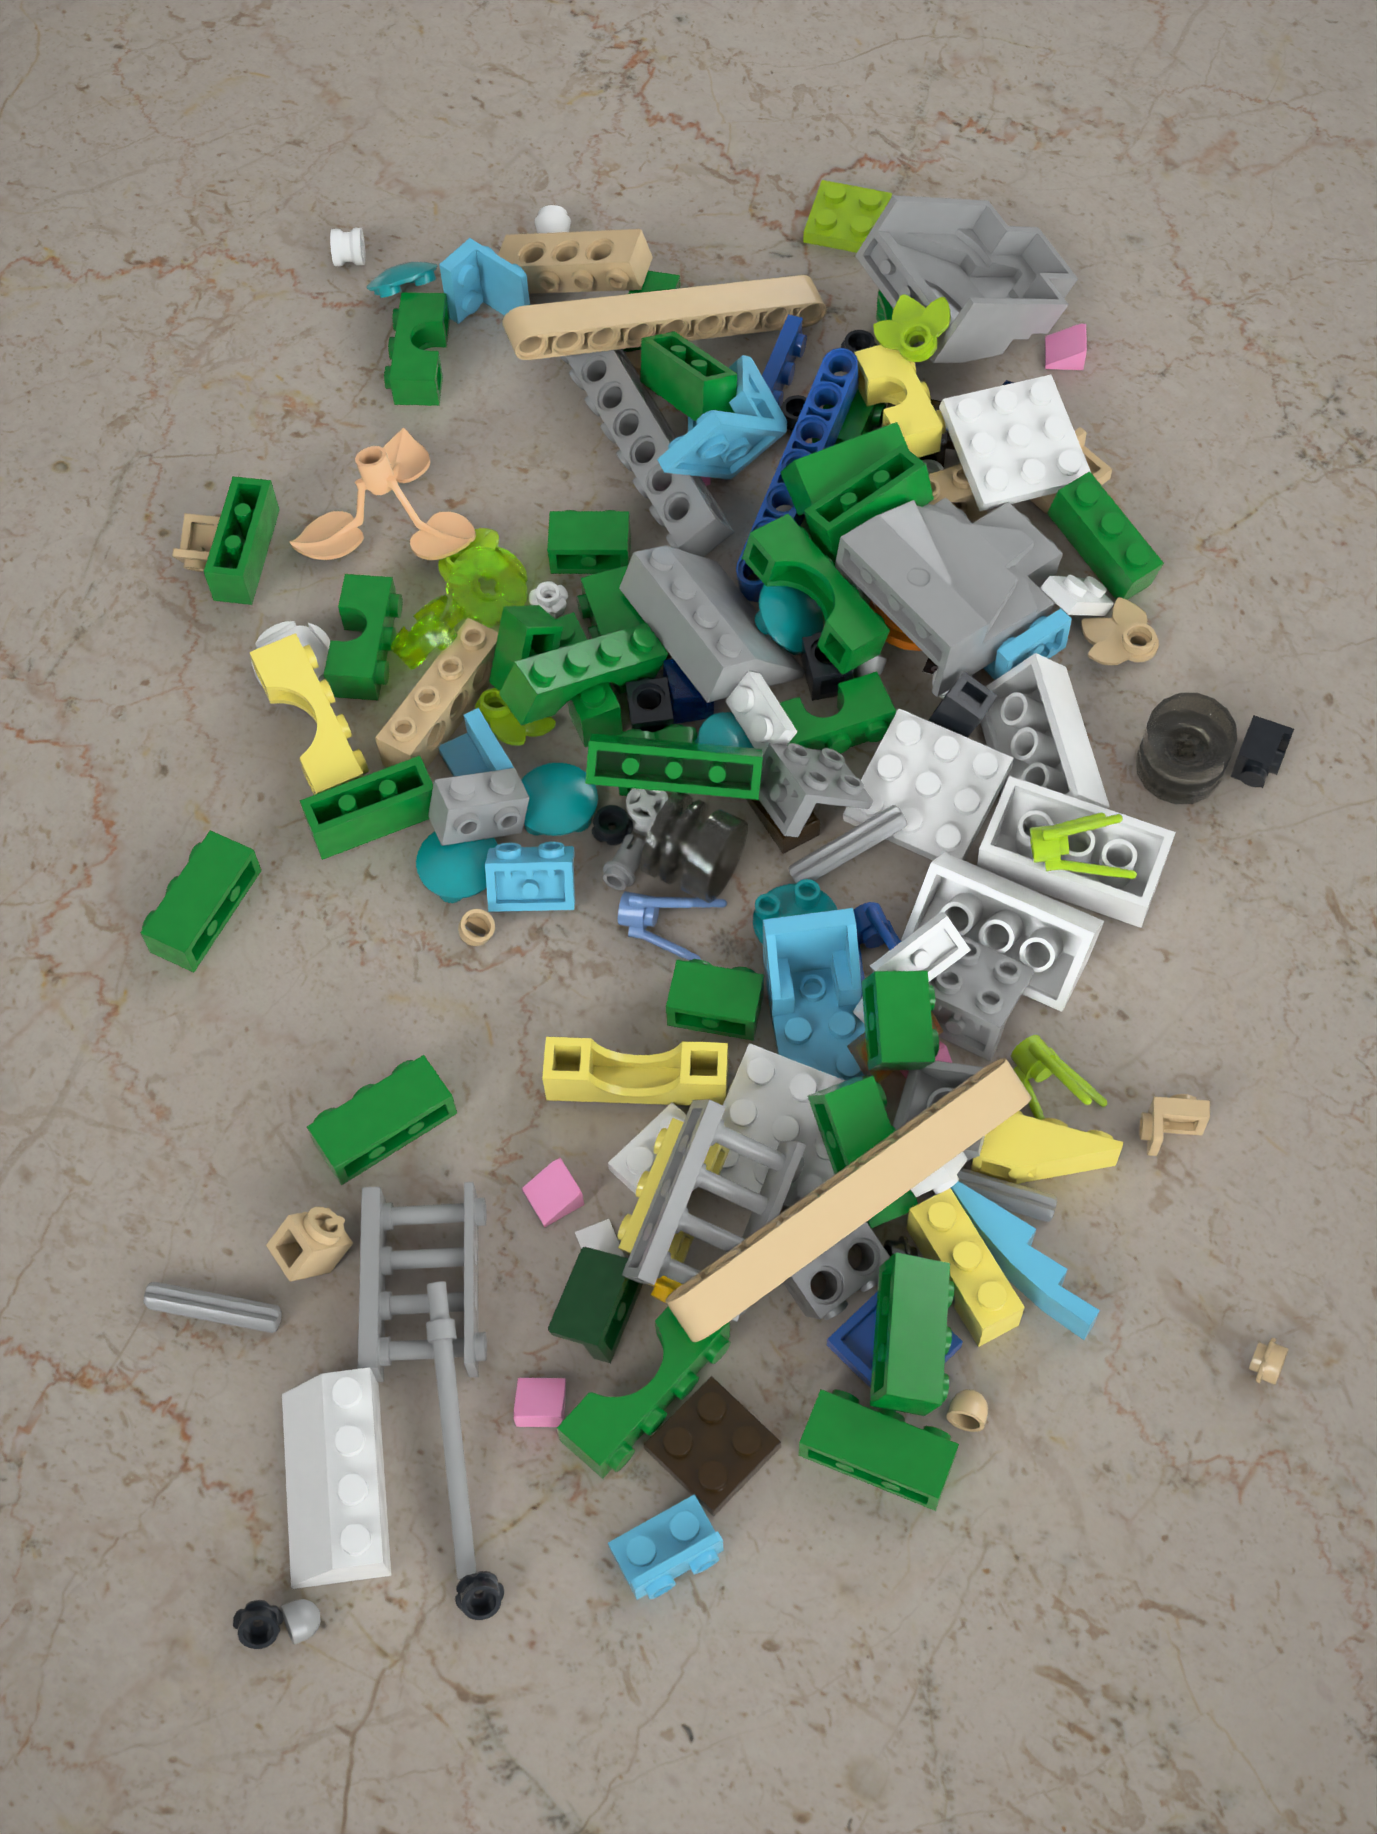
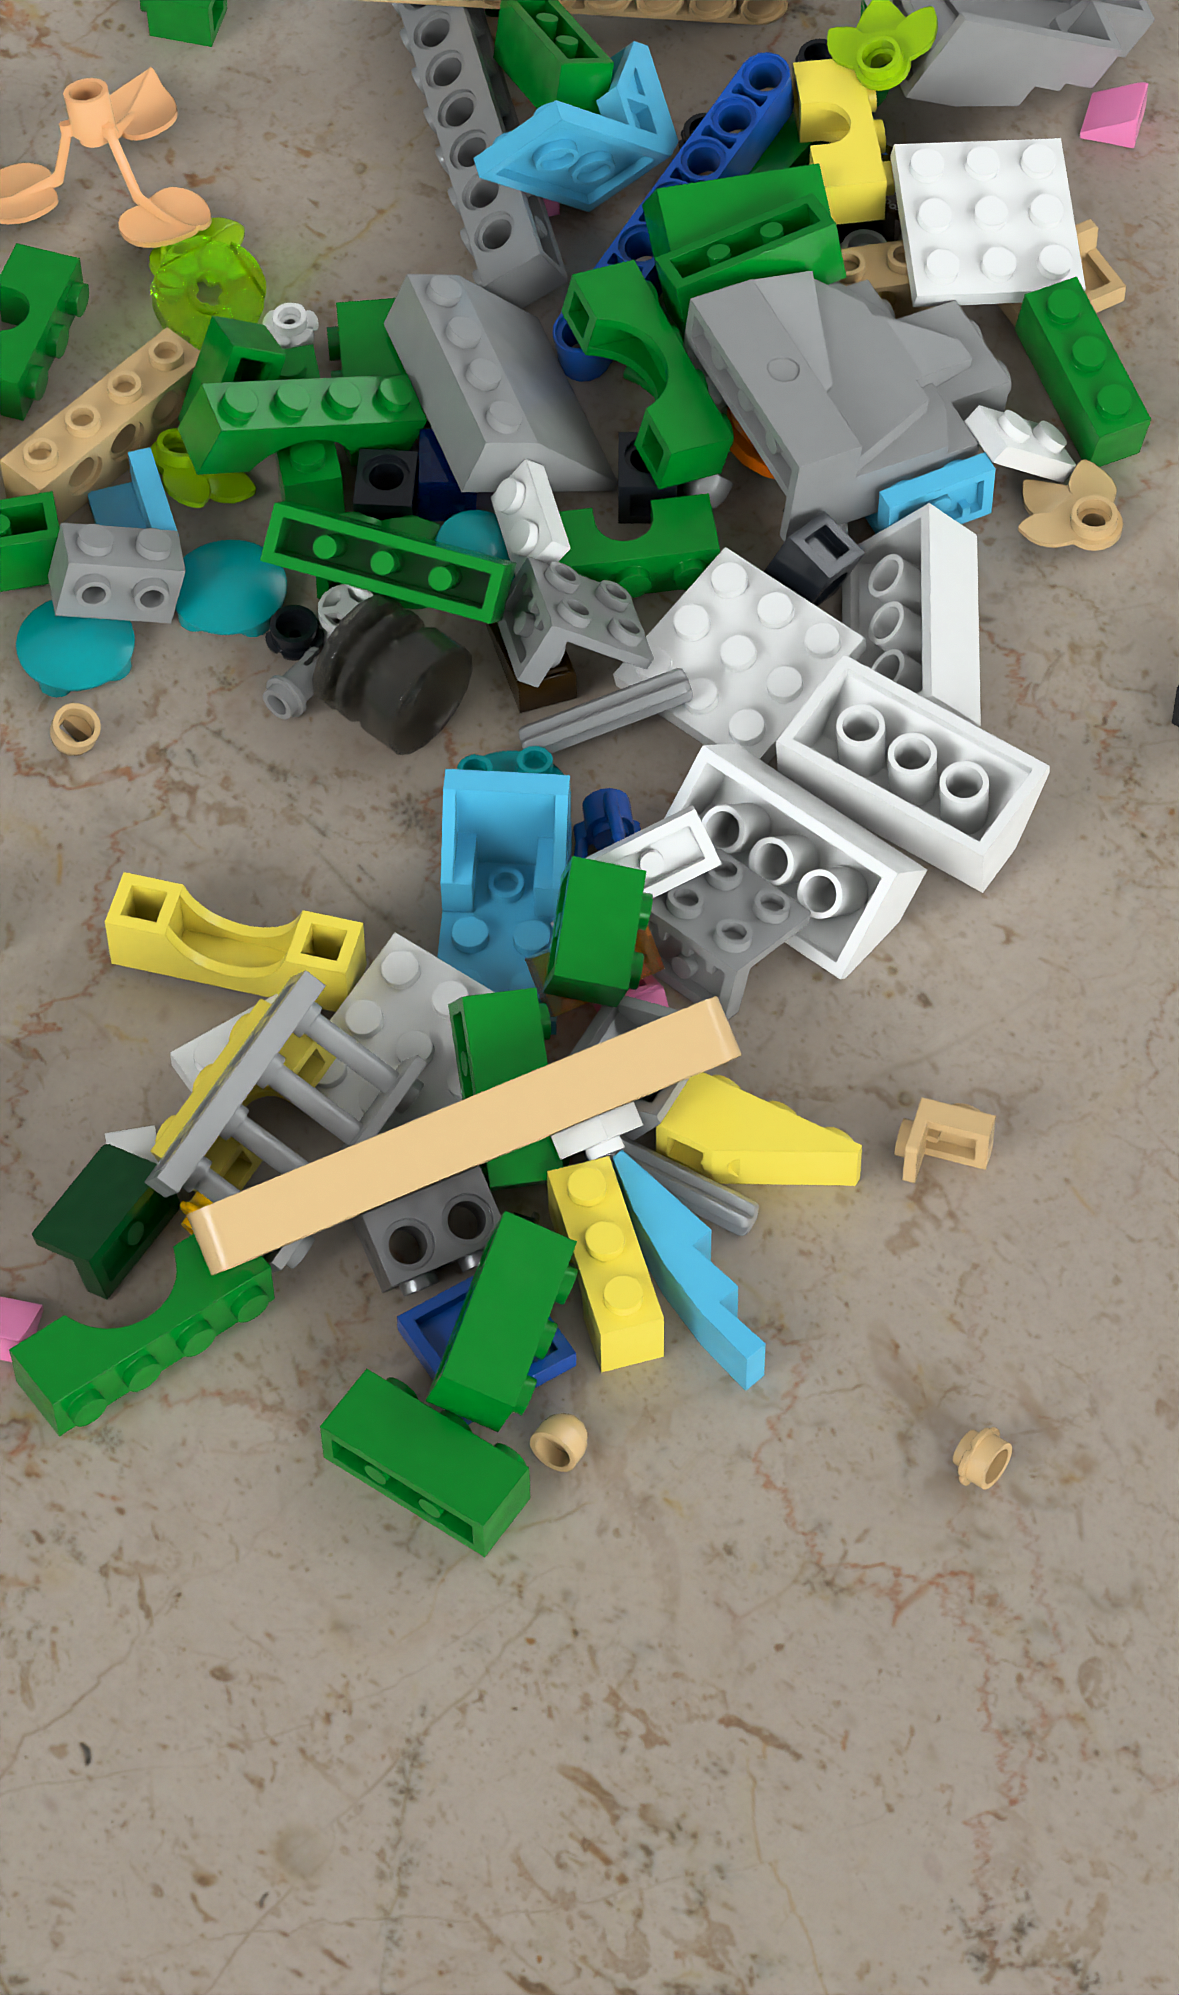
camera: 10 degrees right, 5 degrees down
(432, 630) = (115, 335): clear neon green plate -> none
(530, 877) = (164, 678): medium azure bracket -> none
(553, 1193) = (88, 1077): bright pink slope -> none
(588, 541) = (361, 256): green brick -> none
(643, 911) = (306, 748): medium blue plant -> none
(667, 1548) = (117, 1529): medium azure bracket -> none
(712, 1445) = (212, 1421): dark brown plate -> none
(715, 999) = (369, 875): green brick -> none
(781, 363) = (704, 62): blue plate -> none
(788, 616) = (605, 400): teal dish -> none
(1039, 1062) = (788, 1035): lime plant -> none
(1052, 841) = (872, 745): lime plant -> none
(1186, 748) = (1106, 666): clear smoke wheel -> none

